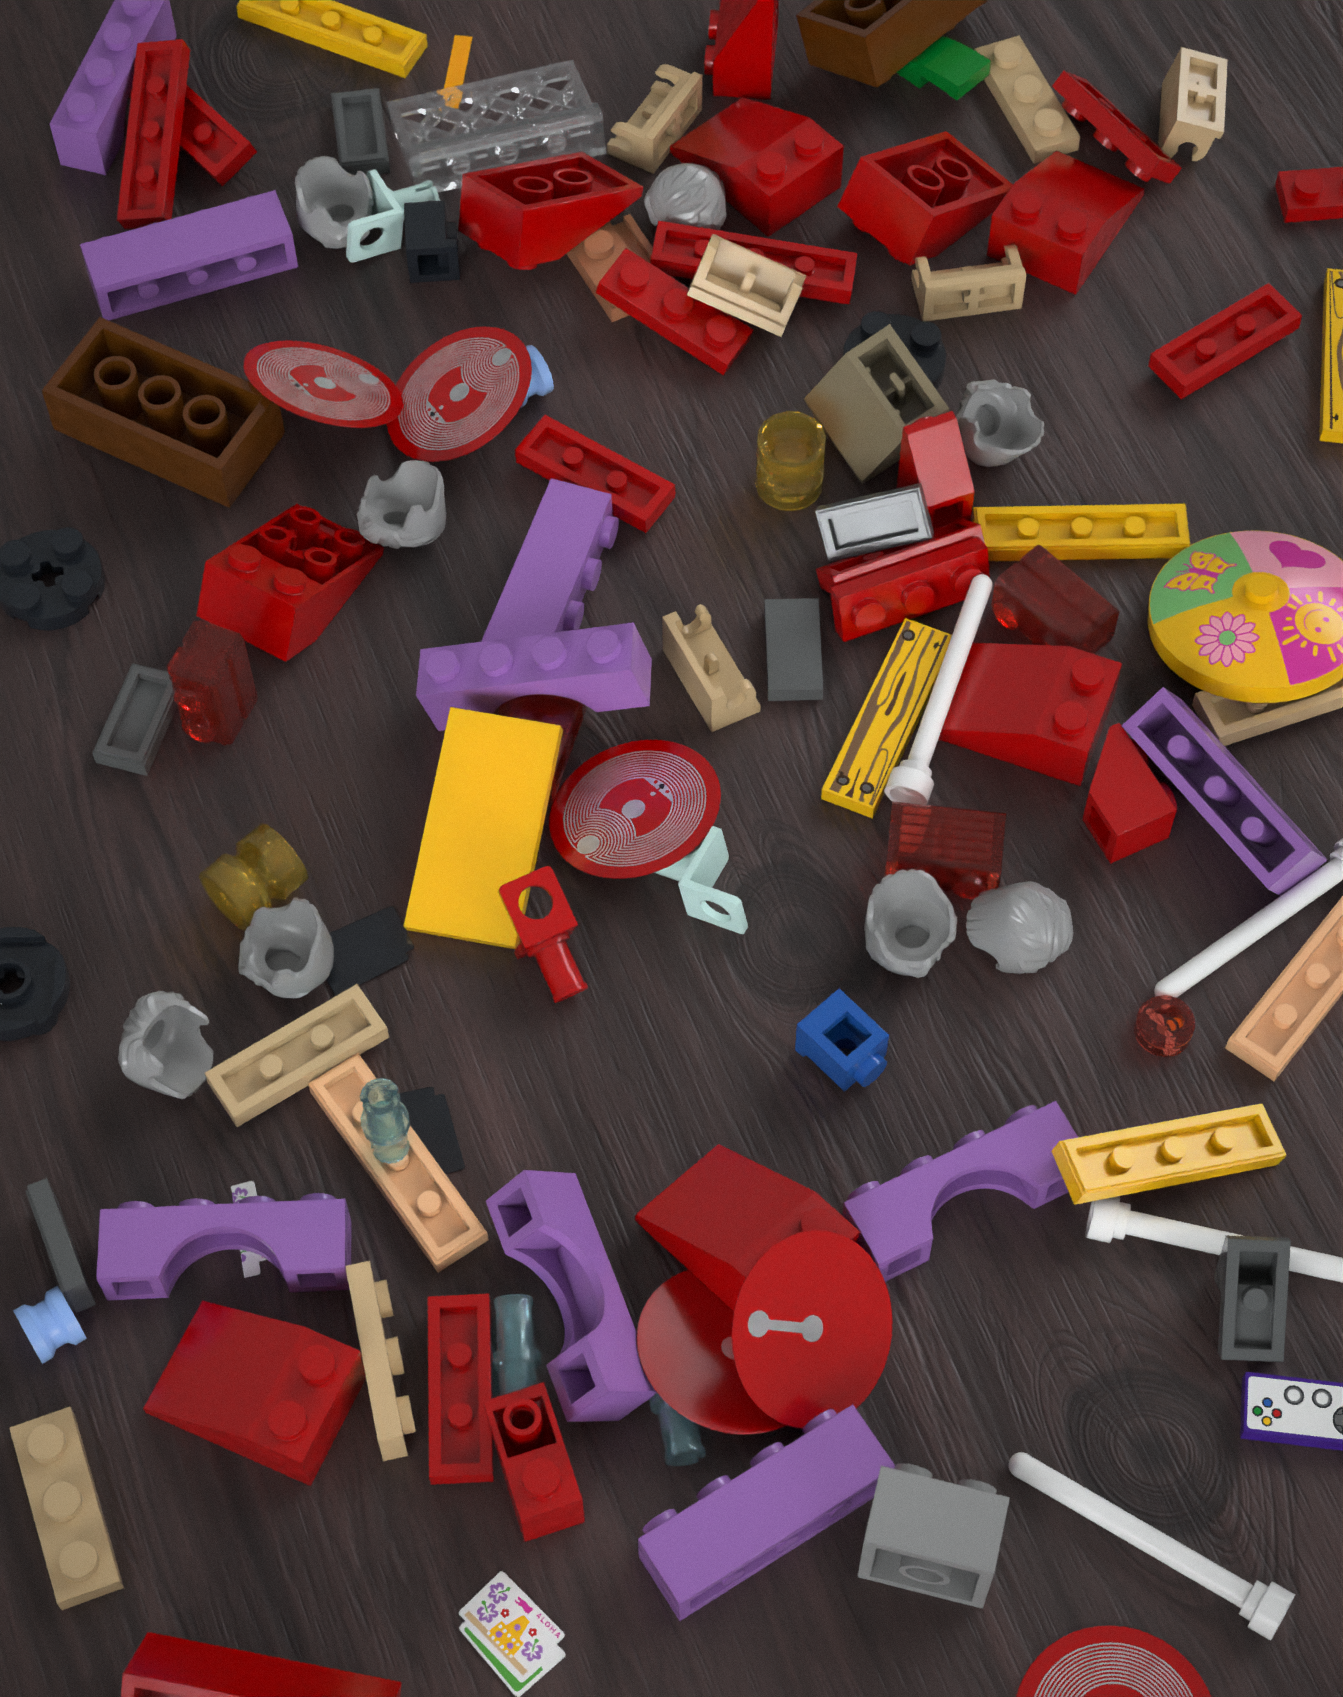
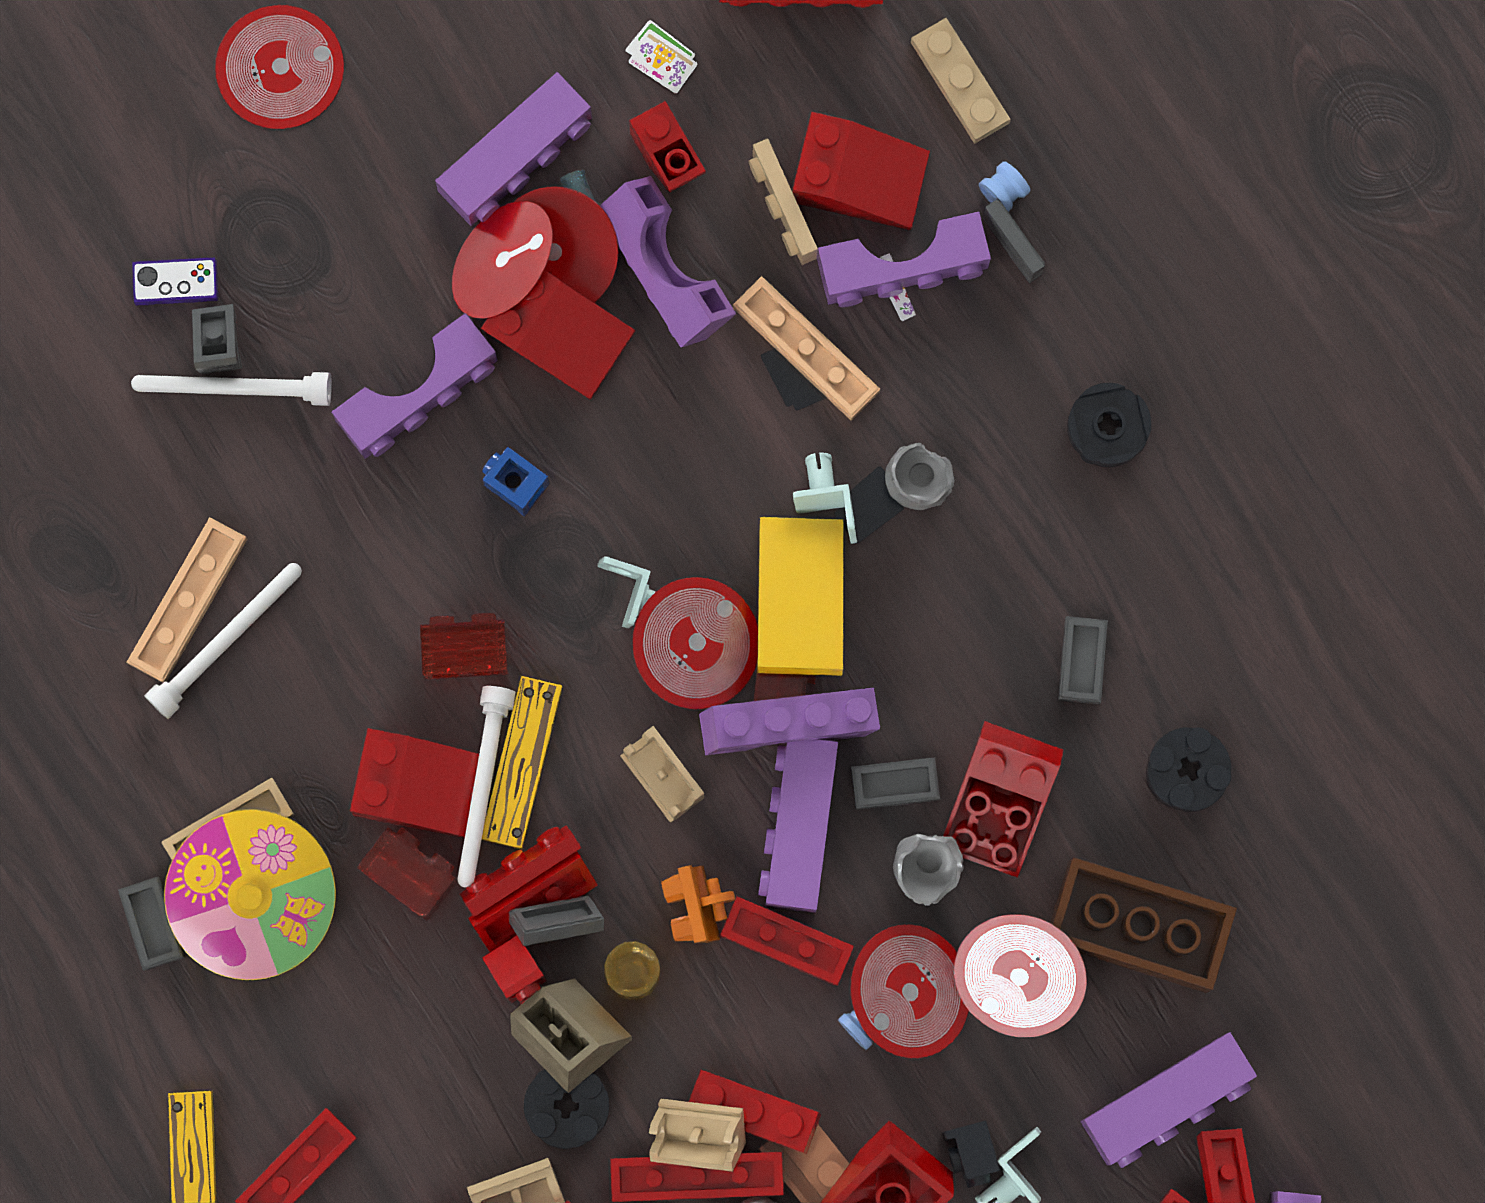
camera: 165 degrees right, 20 degrees up
(165, 1045) = (983, 389): light grey hair -> none
(212, 683) = (1029, 674): clear red brick -> none
(258, 872) = (967, 520): clear yellow wheel -> none
(296, 1055) = (892, 407): tan plate -> none
(330, 200) = (1059, 1166): light grey hair -> none
(385, 1120) = (813, 343): clear light blue pin -> none
(416, 621) = (895, 783): none -> dark grey tile
(420, 957) = (823, 493): none -> light aqua bracket
(457, 1387) = (727, 196): red plate -> none
(515, 1354) = (695, 223): clear light blue pin -> none
(545, 936) = (737, 516): red bracket -> none
(688, 522) = (703, 904): none -> orange hips
(793, 649) = (603, 809): dark grey tile -> none
(908, 923) = (480, 577): light grey hair -> none
(933, 1535) = (405, 140): light grey brick -> none
(997, 423) = (472, 1035): light grey hair -> none
(1020, 926) = (402, 595): light grey hair -> none
(1085, 531) = (395, 961): yellow tile -> none
(1126, 801) = (340, 714): red slope -> none
(1164, 1026) = (291, 543): clear red tile -> none
(1168, 1153) = (279, 432): yellow tile -> none
(1224, 792) = (264, 723): medium lavender brick -> none
(1258, 1602) = (195, 149): white piece -> none

